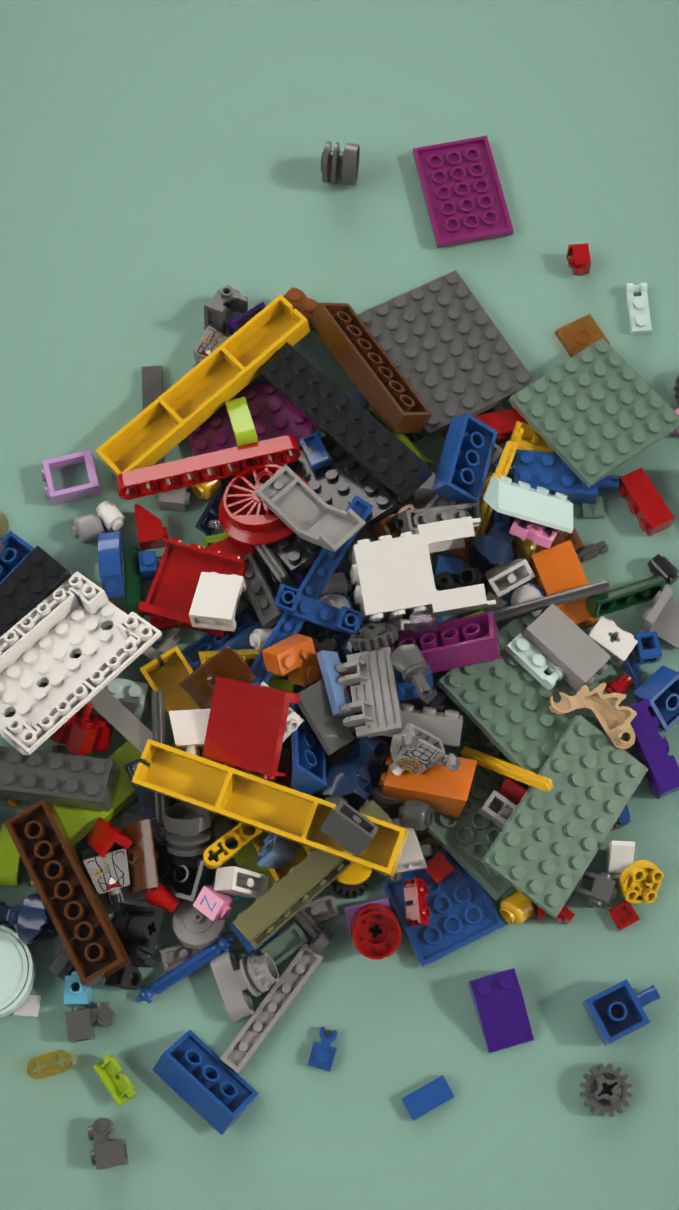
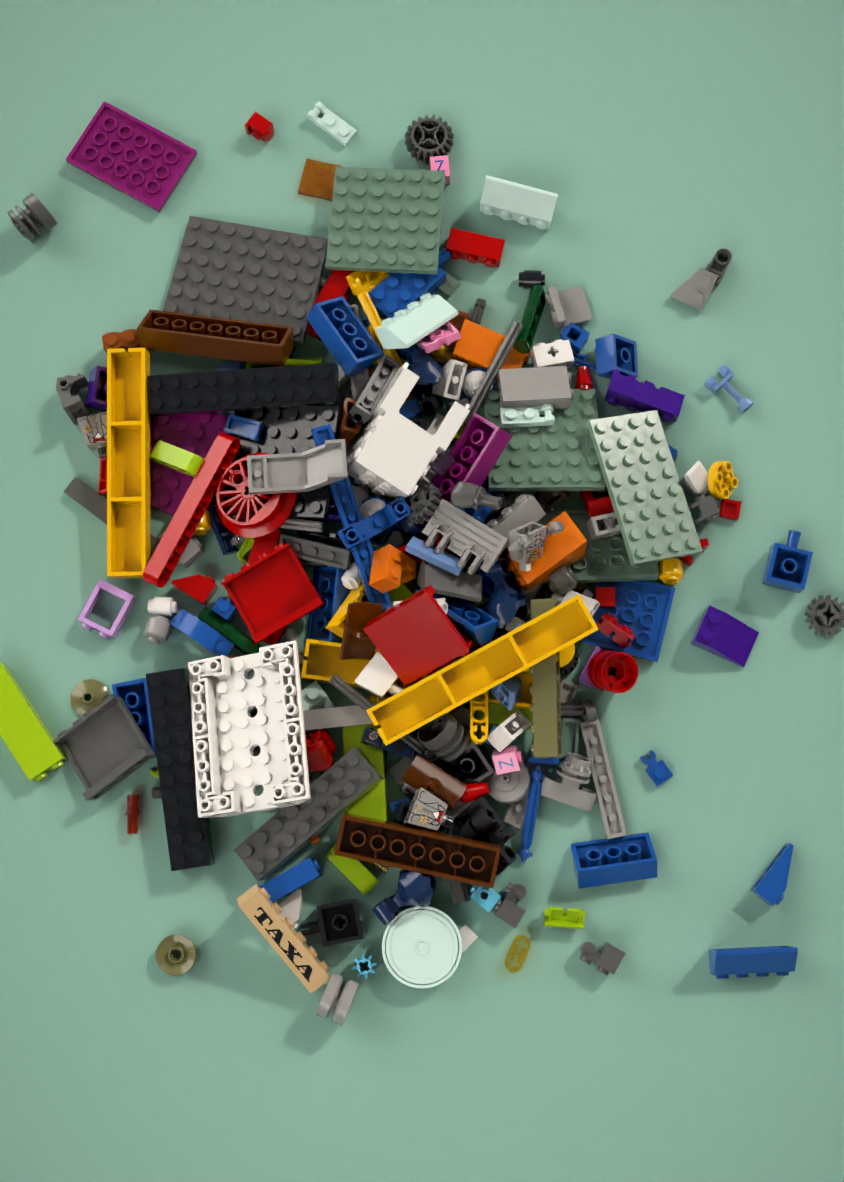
camera: 50 degrees left, 10 degrees up
(104, 835) = (401, 794): red panel -> none
(216, 601) = (302, 584): white panel -> none
(349, 828) = (547, 629): dark grey brick -> none
(428, 1097) = (739, 728): blue tile -> none
(508, 769) = (584, 497): yellow axle -> none
(612, 717) = (598, 399): tan animal -> none

